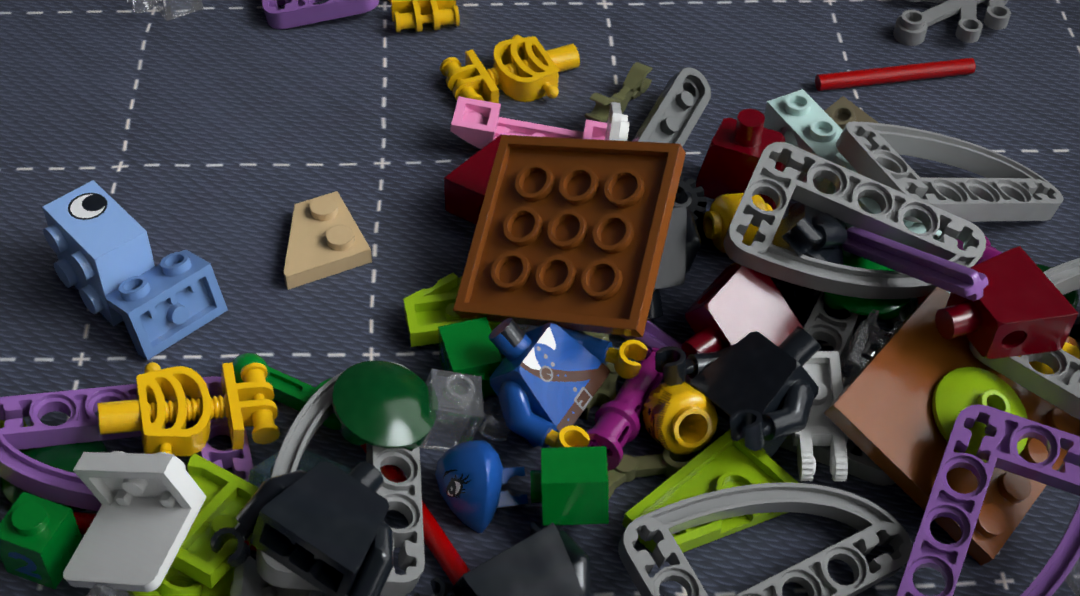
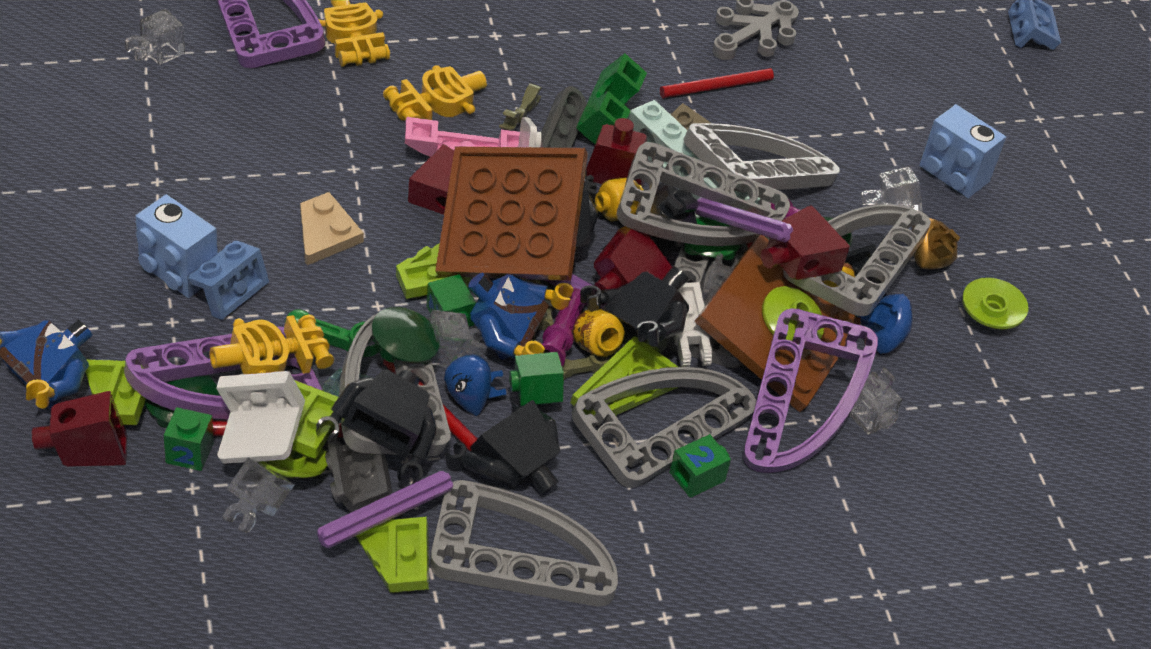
camera: 15 degrees left, 0 degrees up
(744, 81) = (608, 99): none -> green arch

